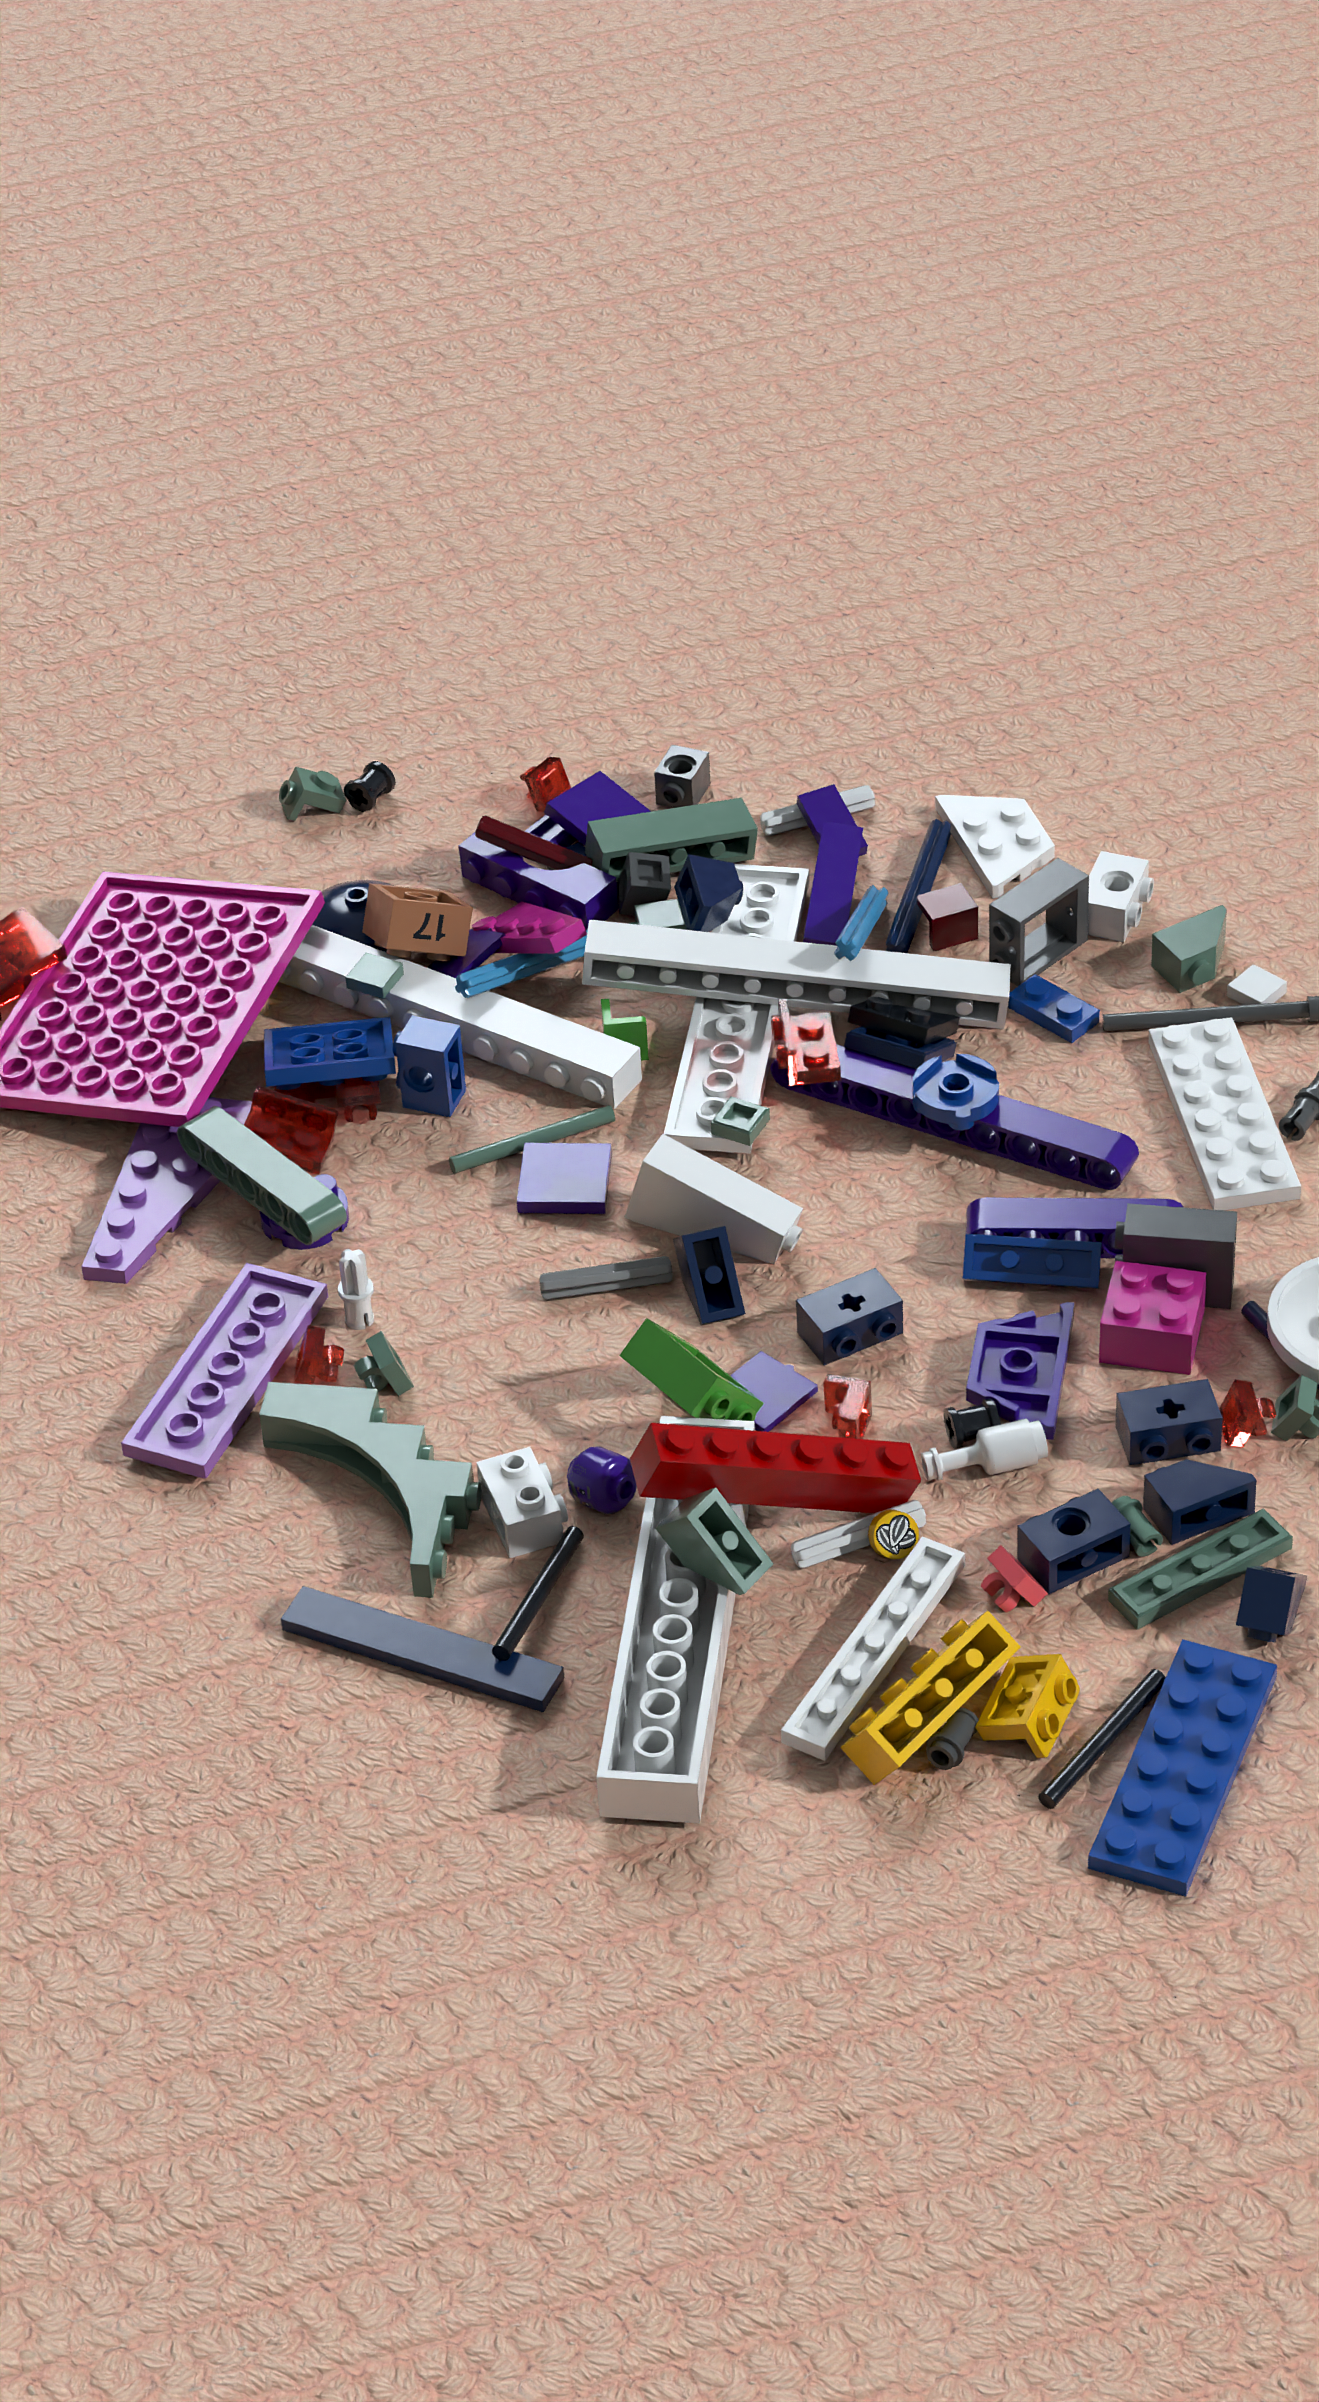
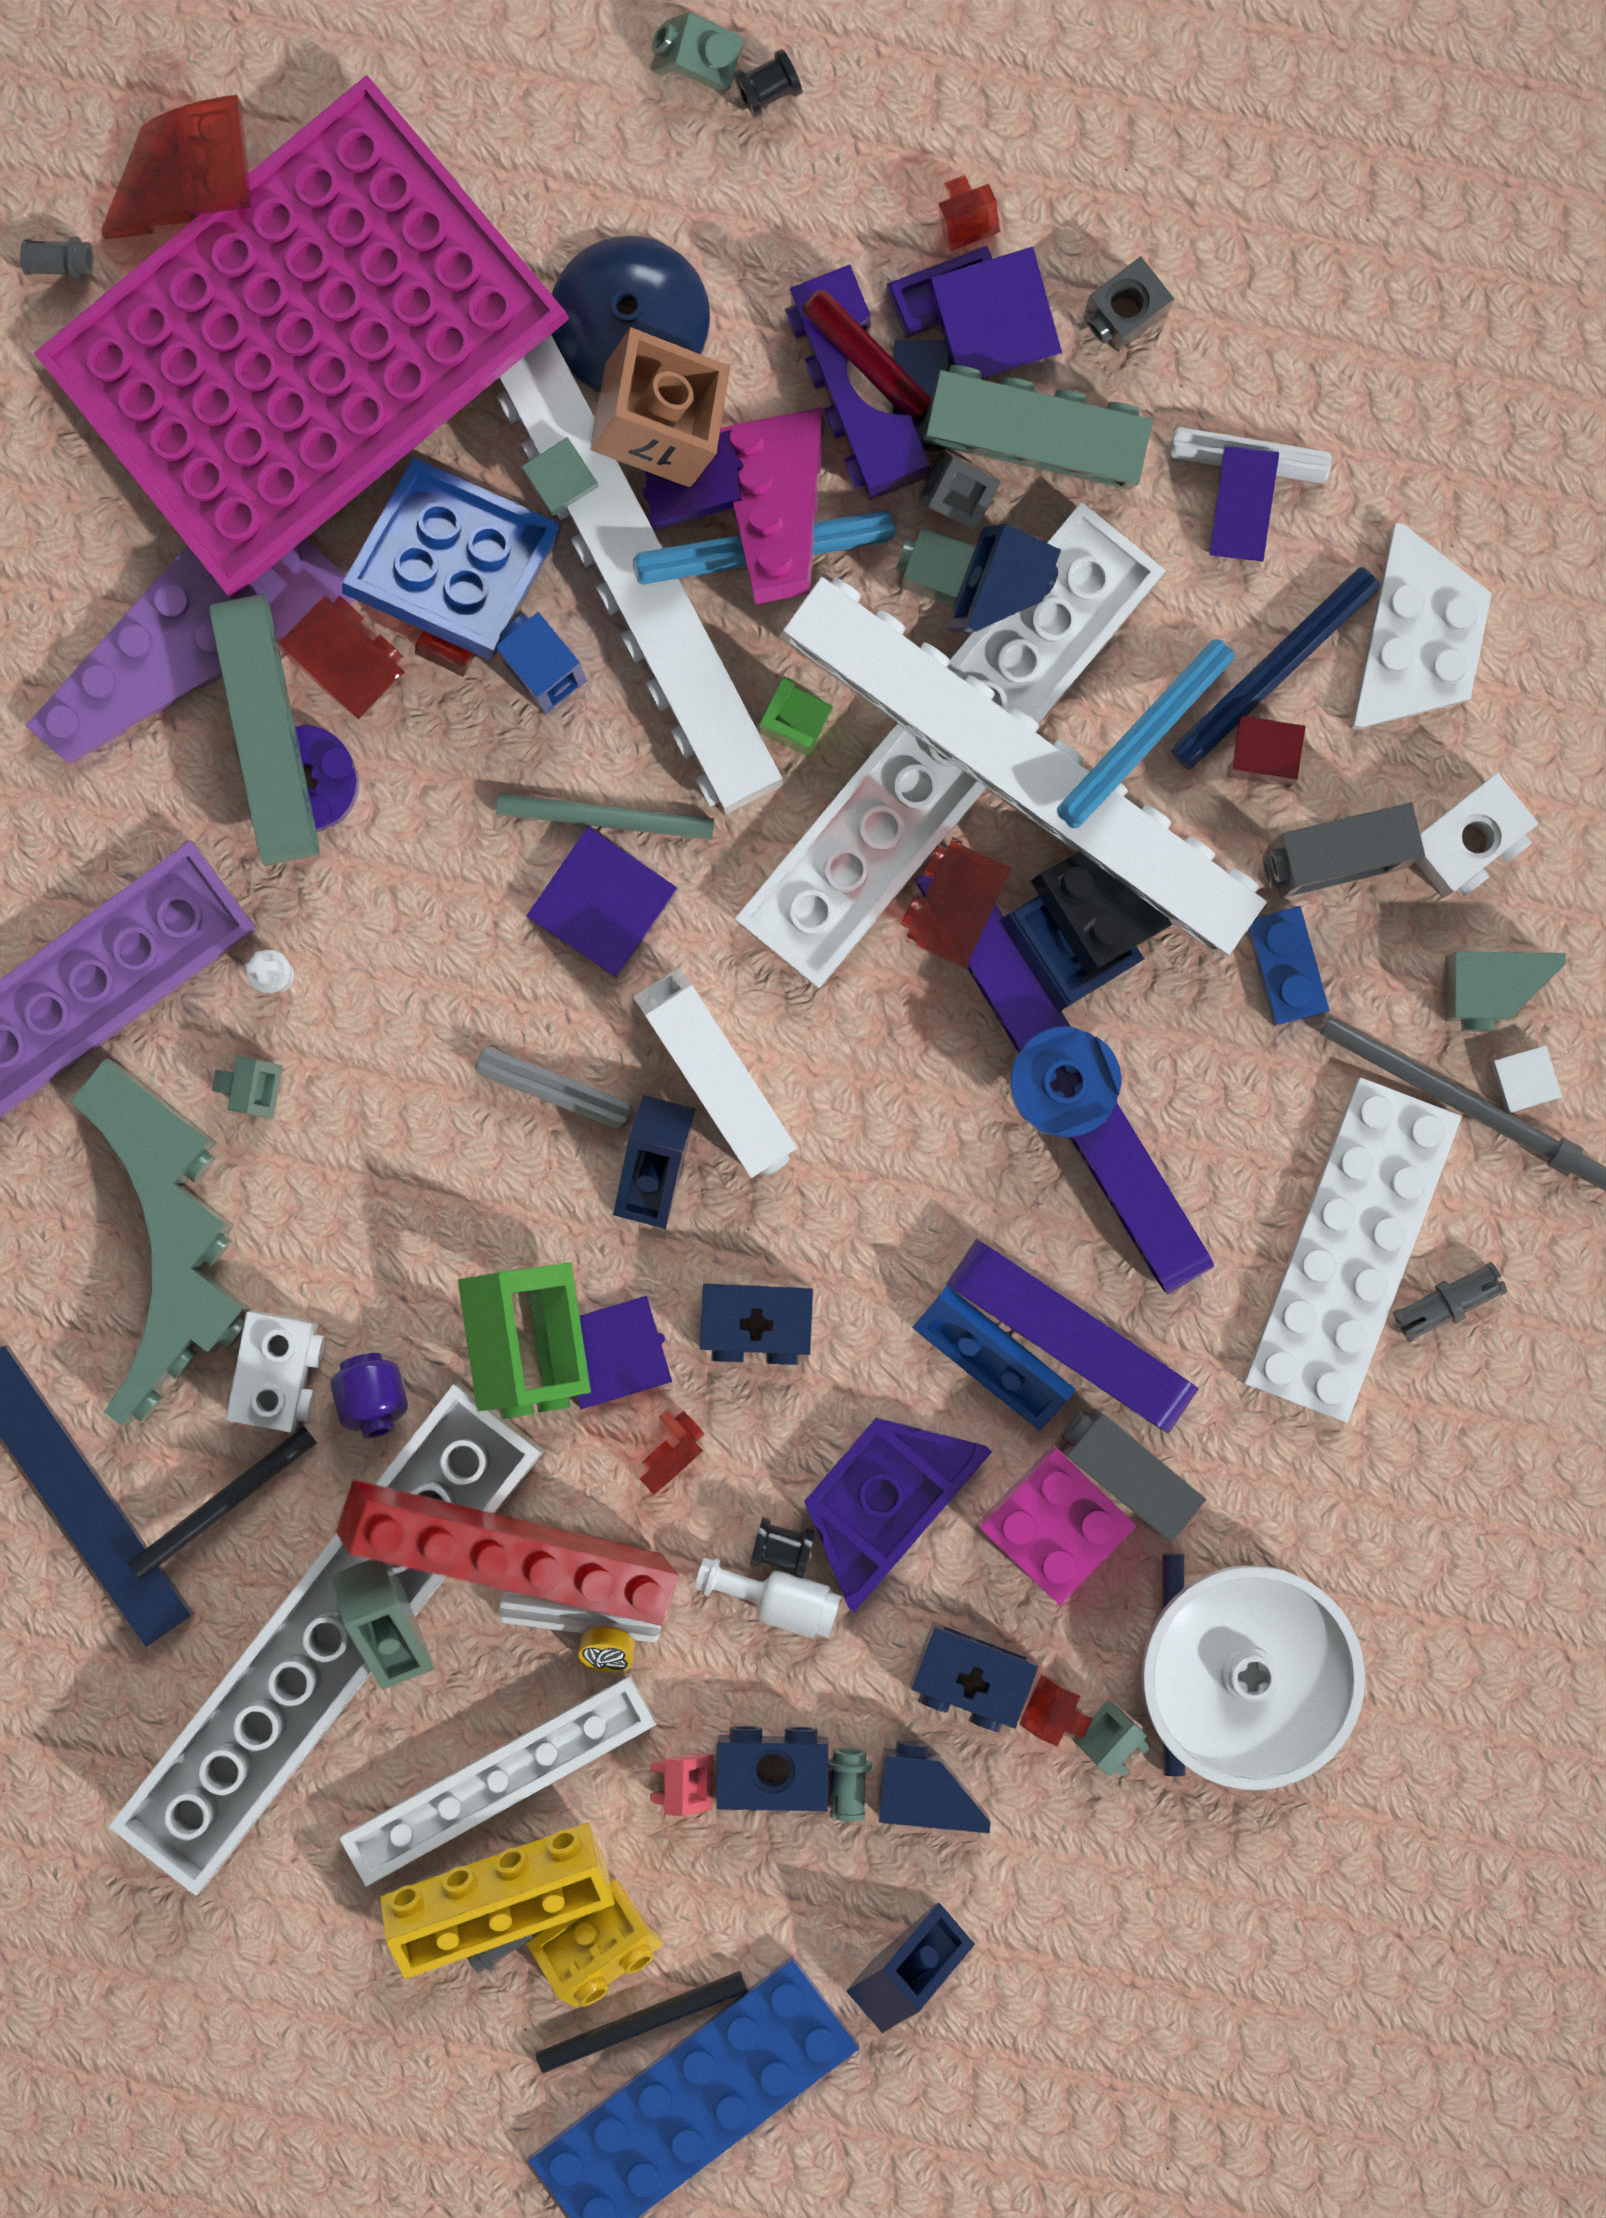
camera: 30 degrees right, 45 degrees up
(316, 1359) = (183, 1029): clear red tile -> none
(740, 1121) = (822, 959): sand green tile -> none
(833, 882) = (1174, 616): dark purple tile -> none
(1200, 1568) = (879, 1871): sand green tile -> none

